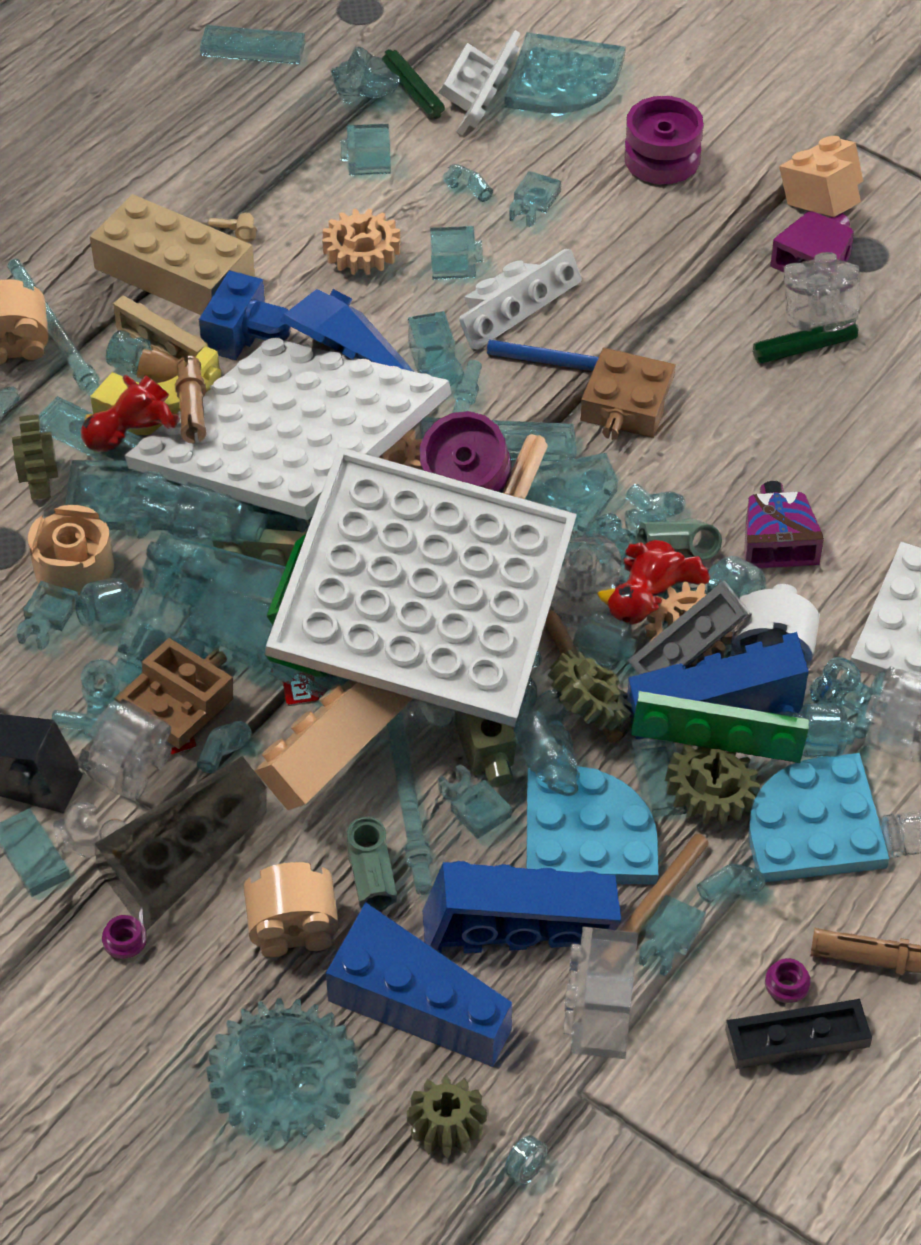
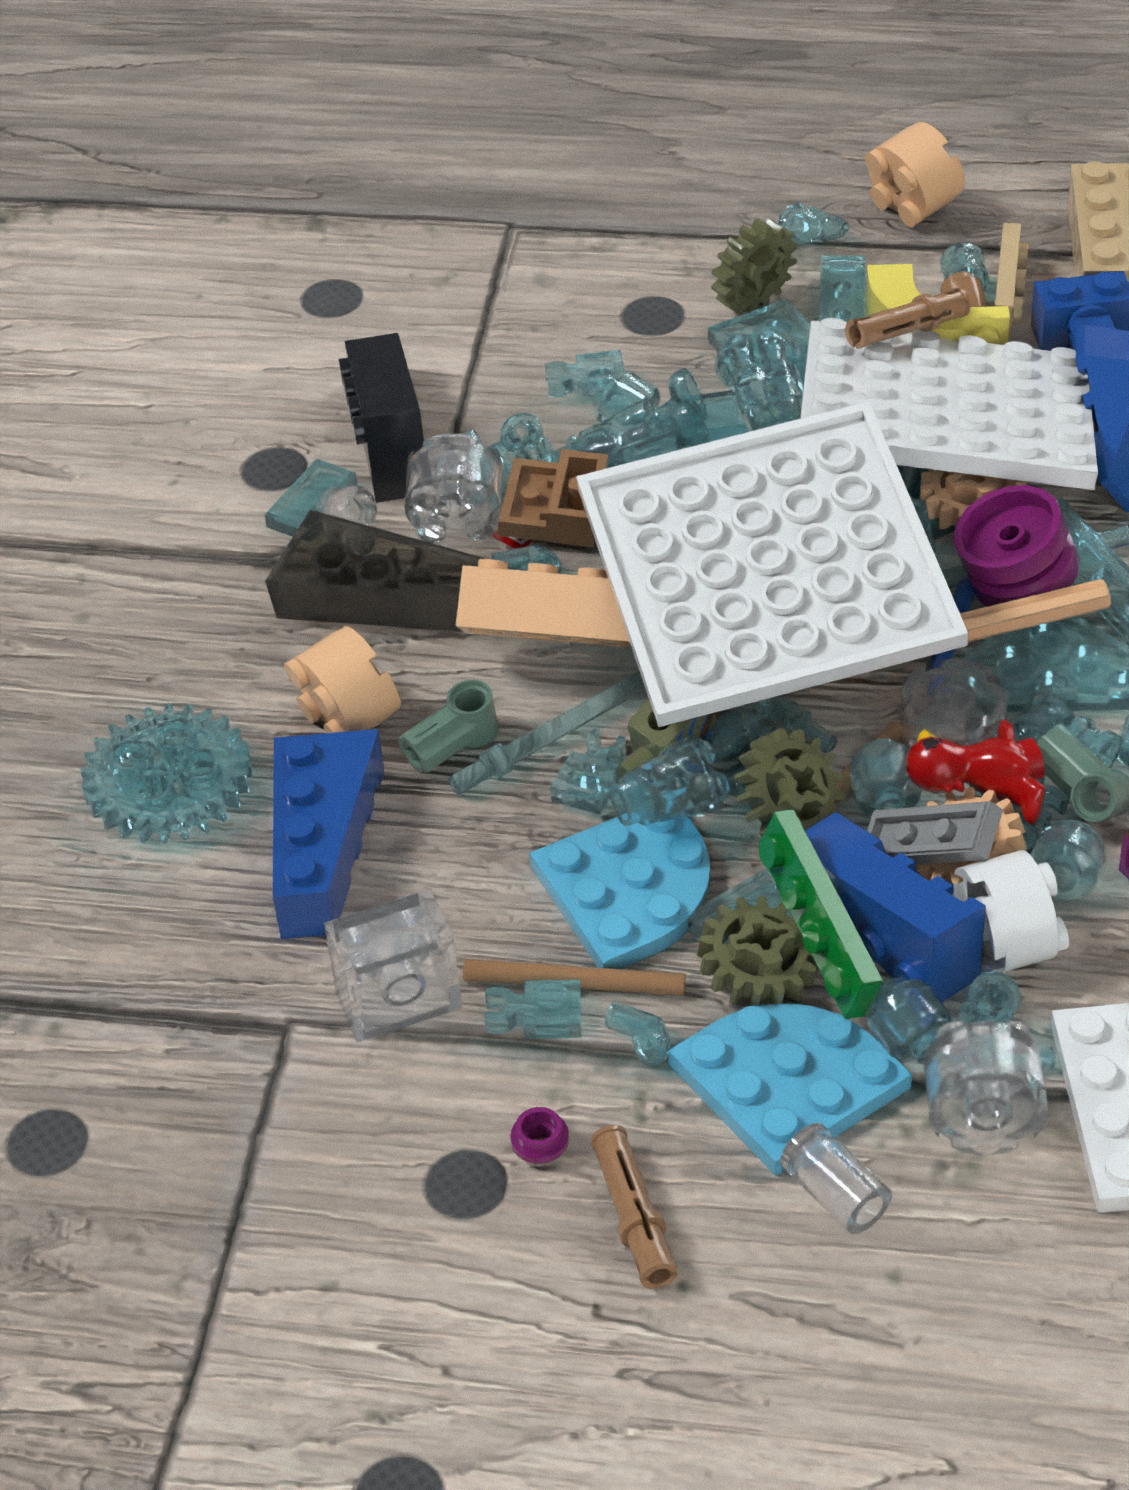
camera: 65 degrees right, 5 degrees down
(71, 547) = (666, 338): light nougat brick -> none
(83, 373) = (953, 217): clear light blue bar -> none
(121, 927) = (251, 600): magenta plate -> none
(136, 408) = (862, 291): red animal -> none
(446, 1132) = (183, 916): olive gear -> none
(516, 906) = (467, 856): blue wedge -> none
(526, 1159) = (167, 1001): clear light blue tile -> none
(798, 1033) = (471, 1172): black plate -> none

